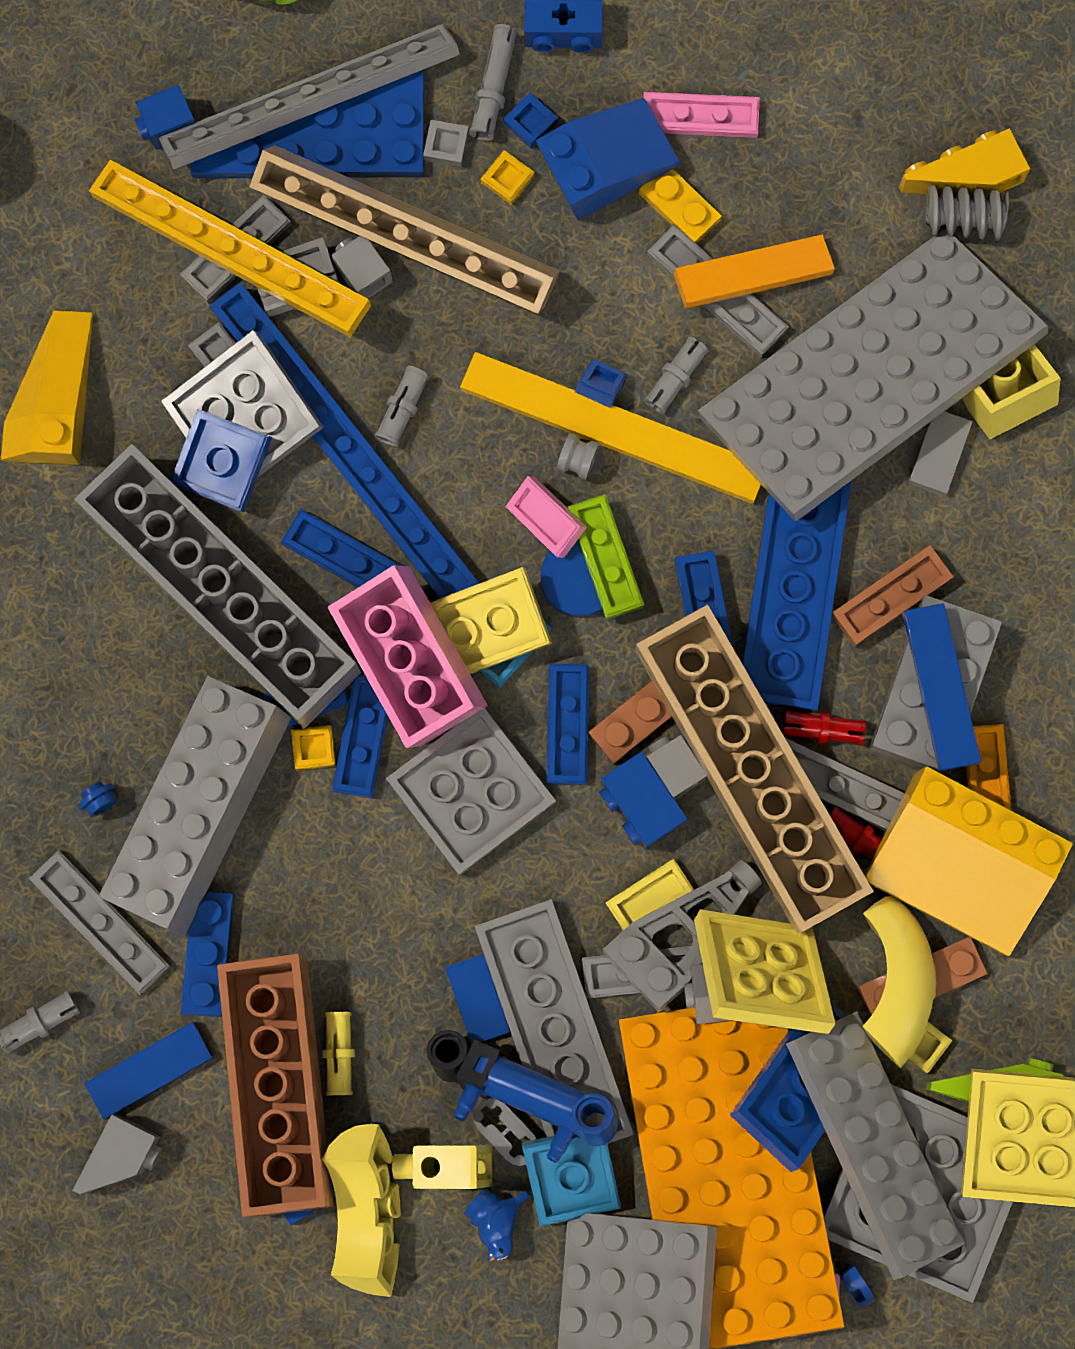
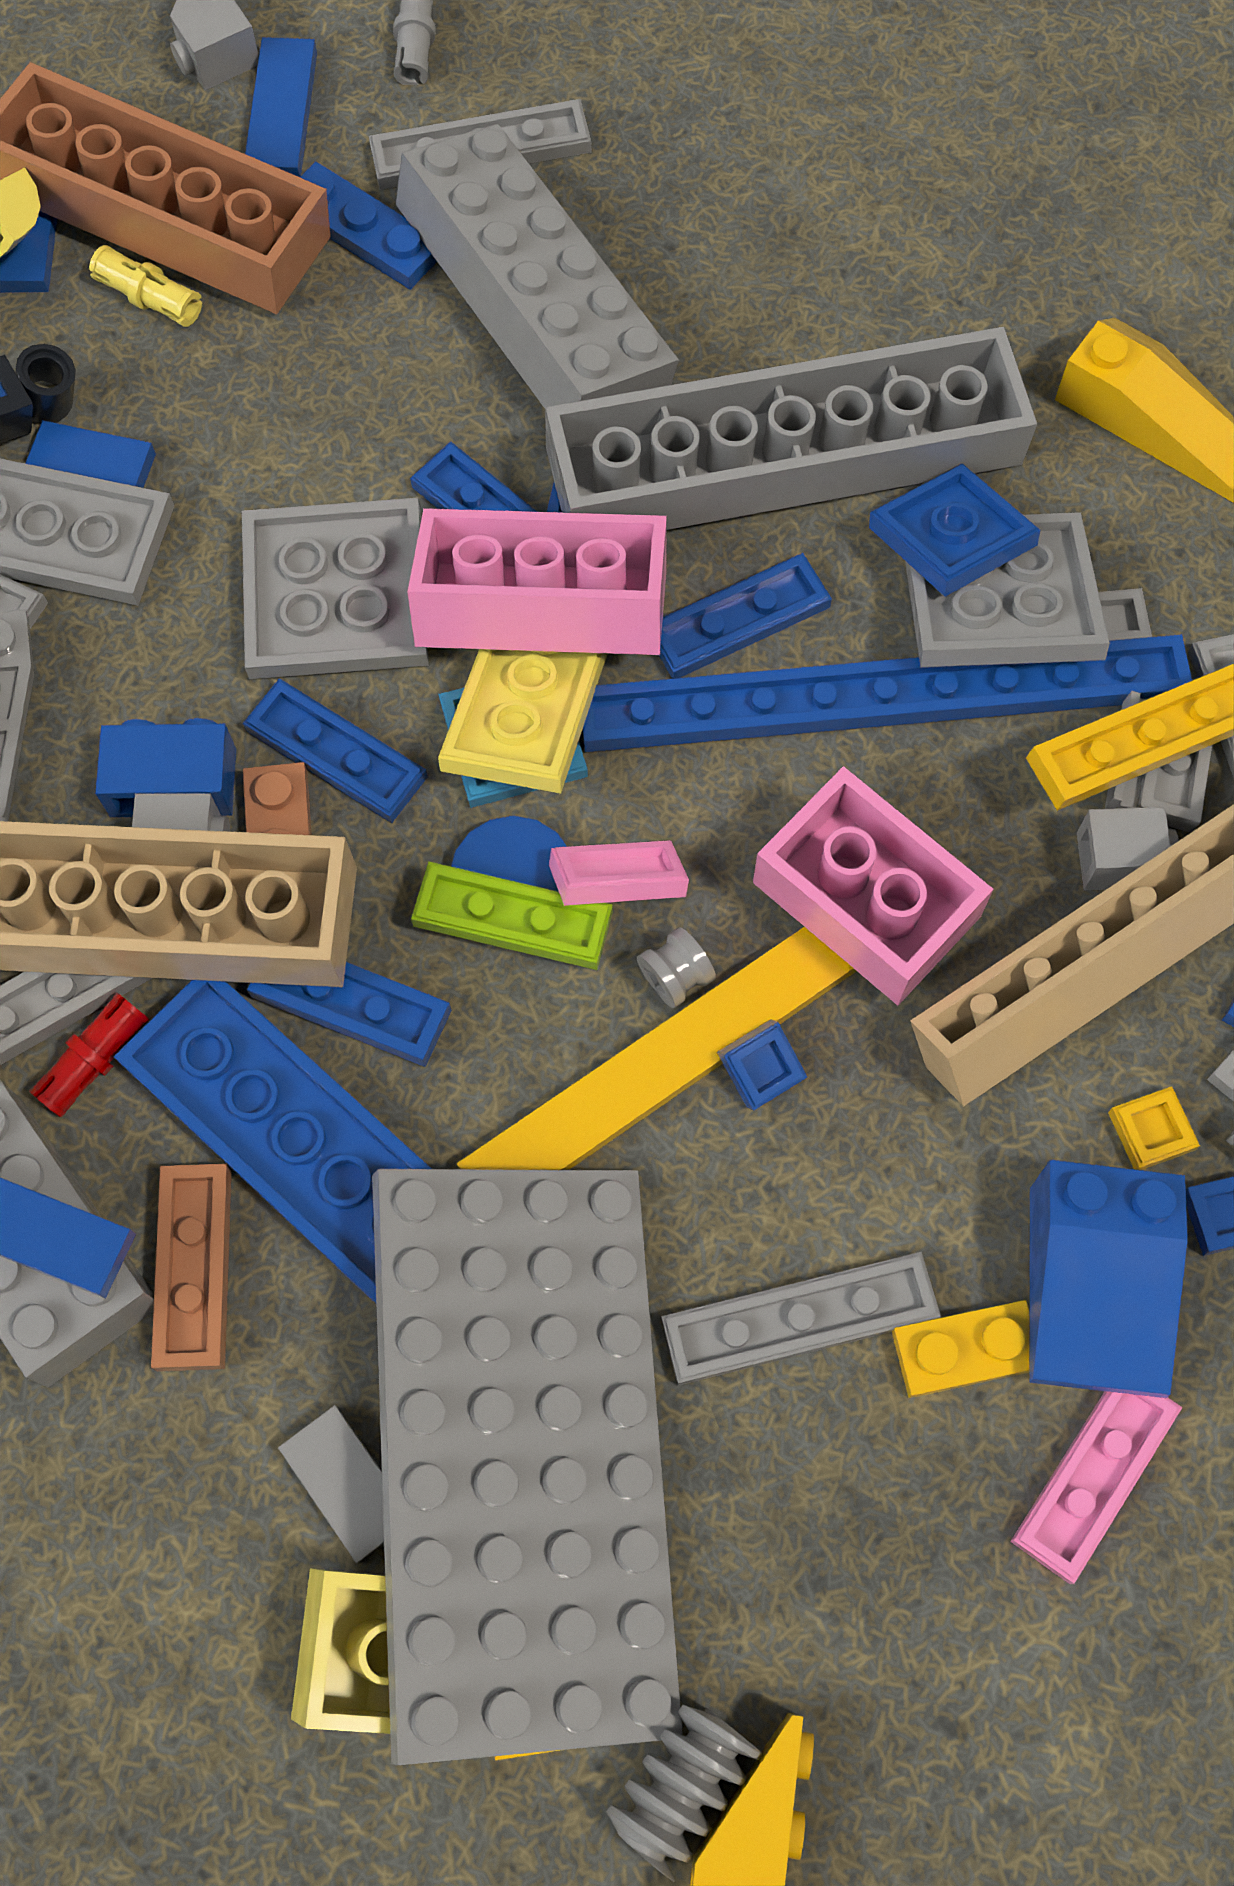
camera: 120 degrees right, 10 degrees down
(97, 798) = (620, 201): blue plate -> none
(313, 747) = (517, 455): yellow tile -> none
(402, 406) = (896, 787): light grey pin -> none
(476, 374) = (870, 885): none -> bright pink brick
(649, 894) = (54, 718): light yellow tile -> none
(676, 375) = (709, 1175): light grey pin -> none
(753, 271) = (792, 1385): light orange tile -> none

